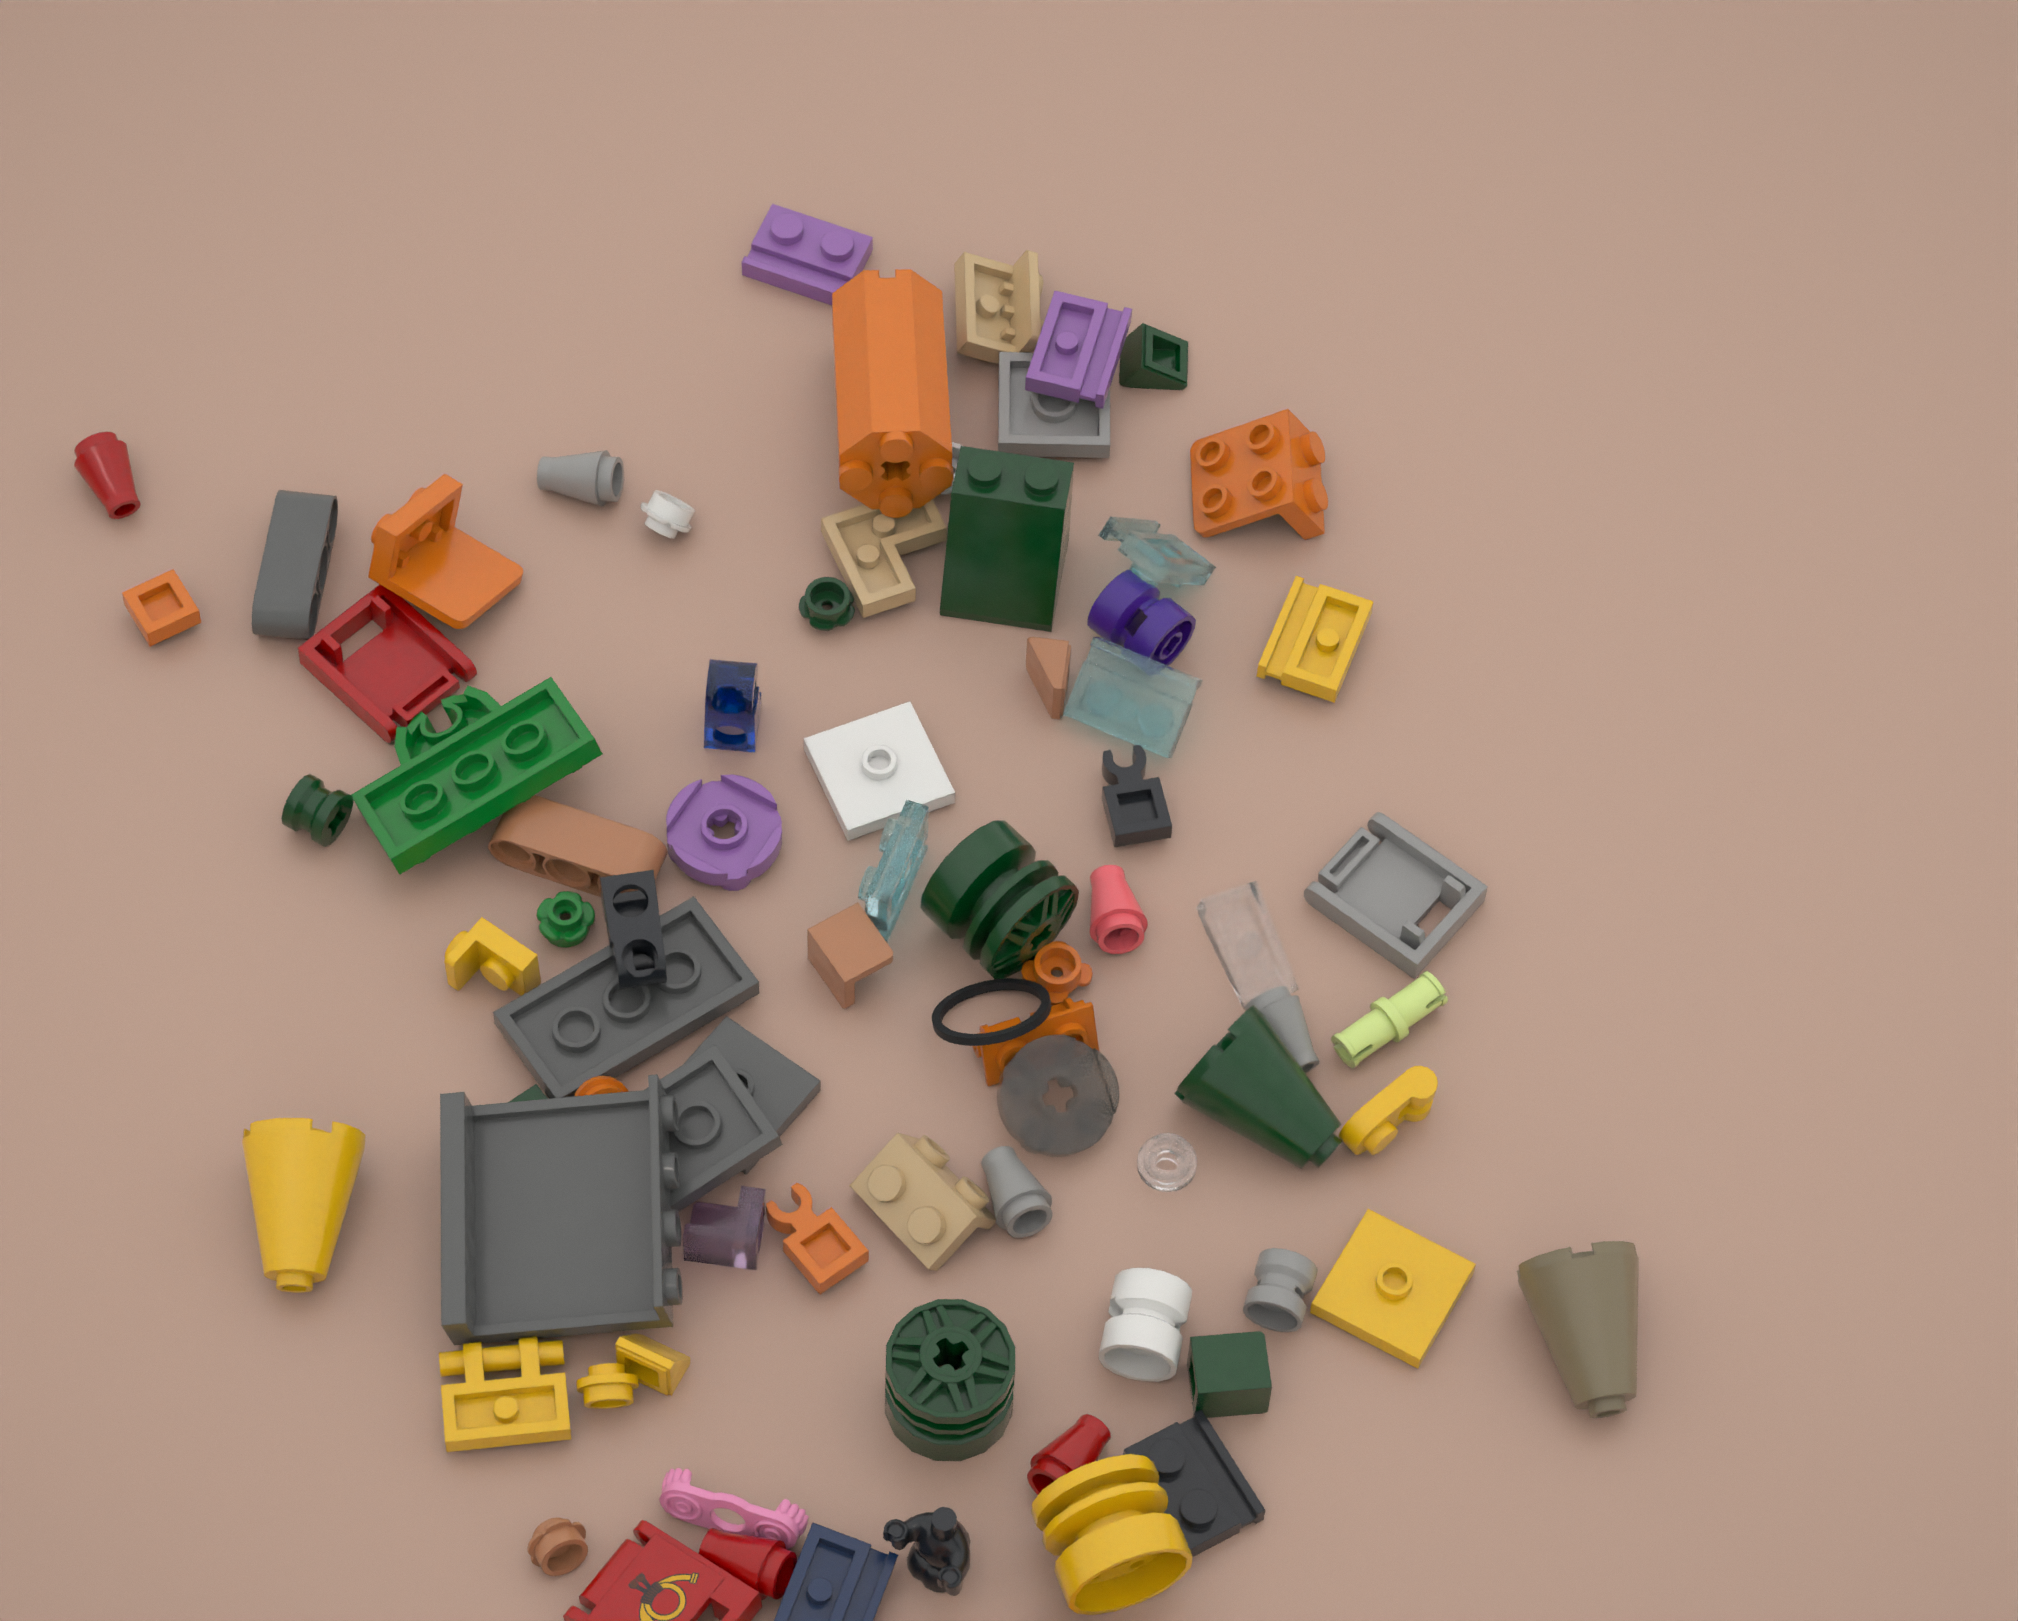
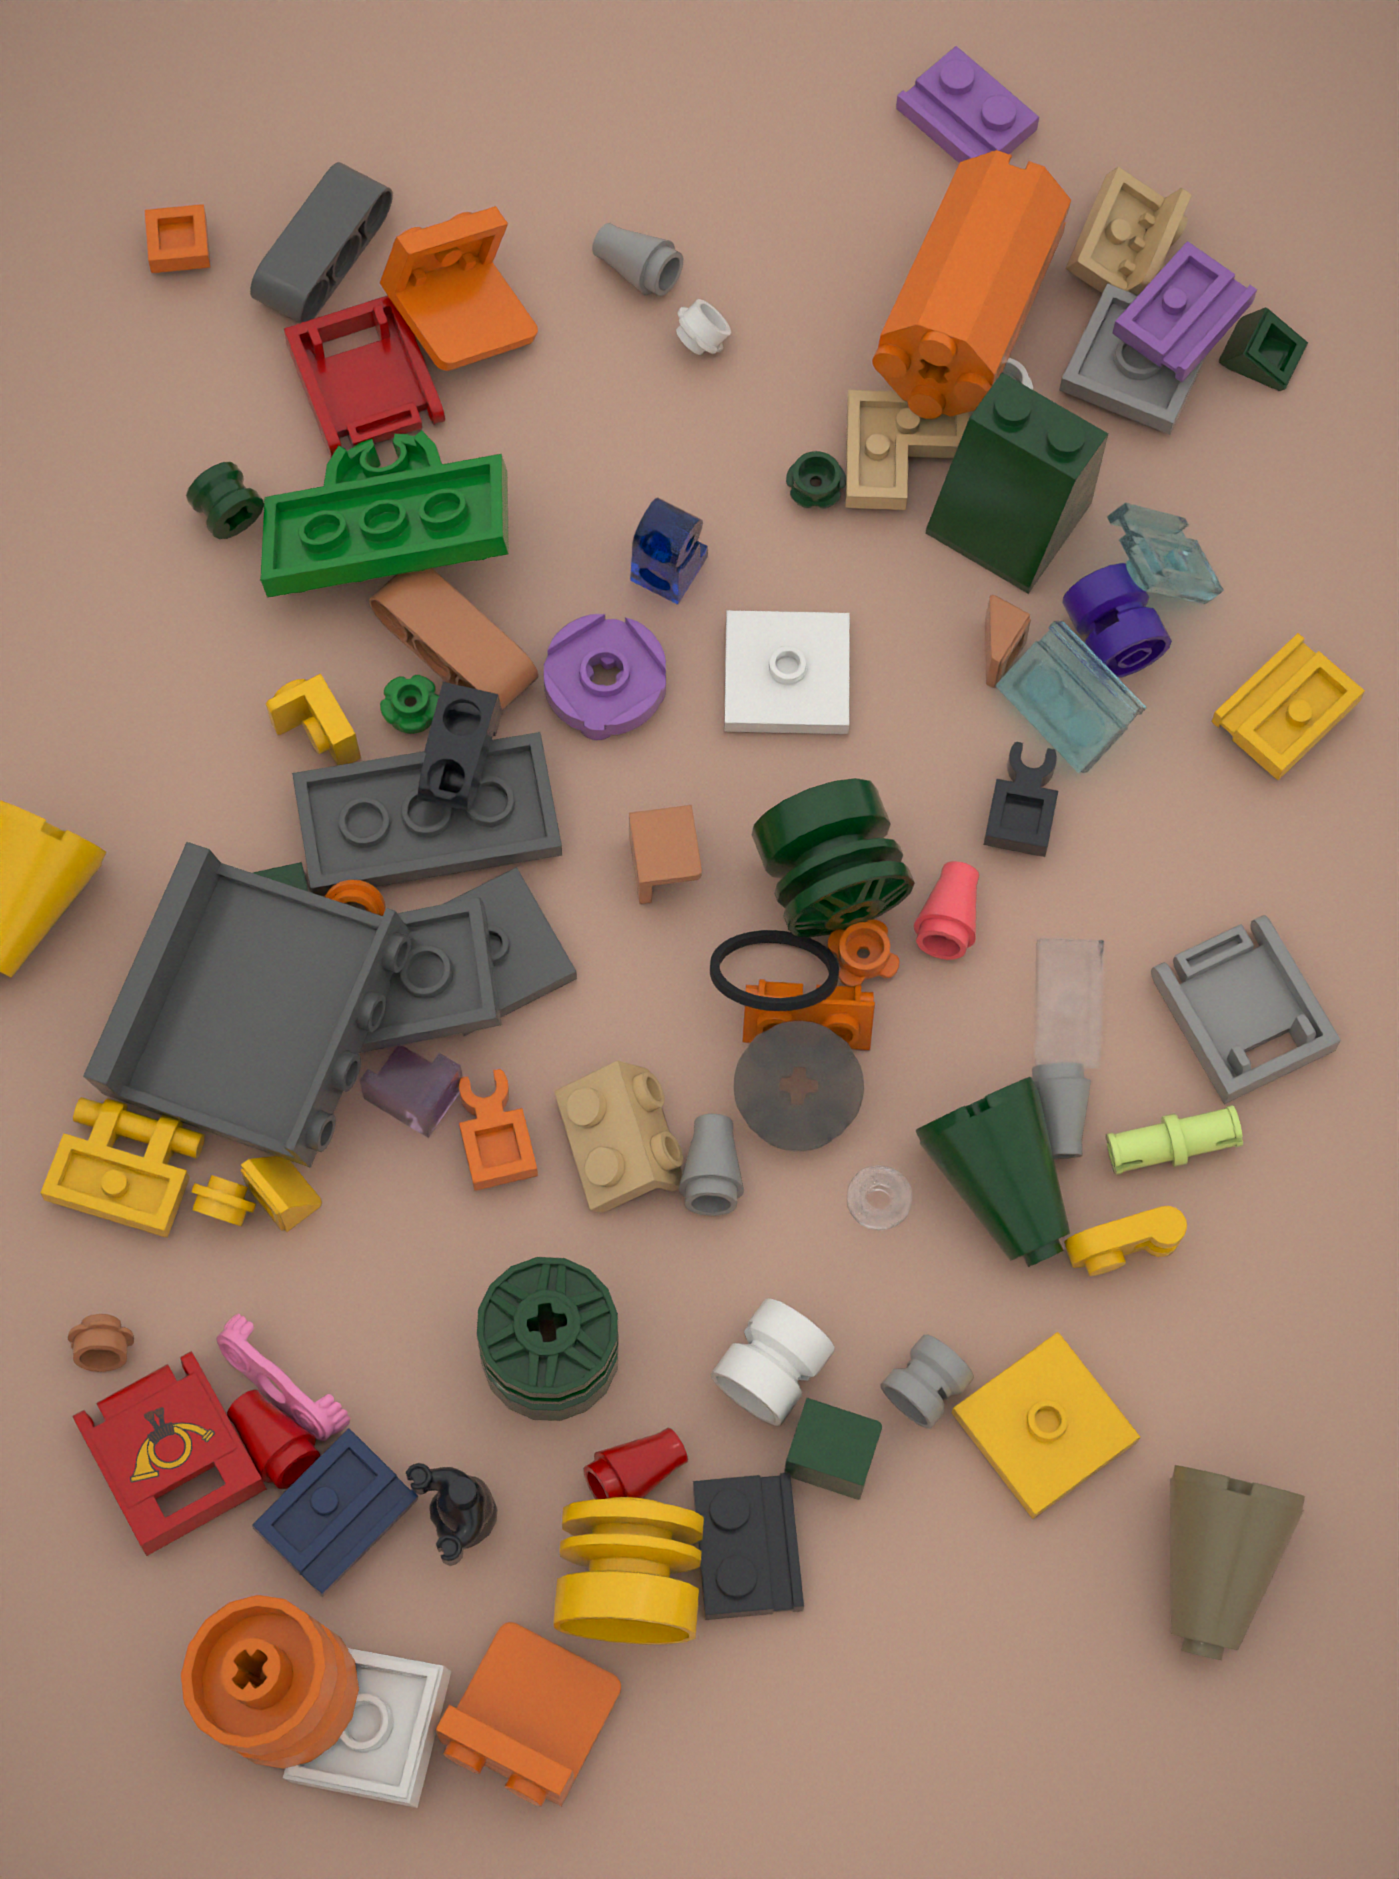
camera: 25 degrees right, 10 degrees up
(107, 470) = (191, 83): red cone -> none
(903, 852) = (734, 798): clear light blue plate -> none
(1259, 473) = (1311, 511): orange bracket -> none

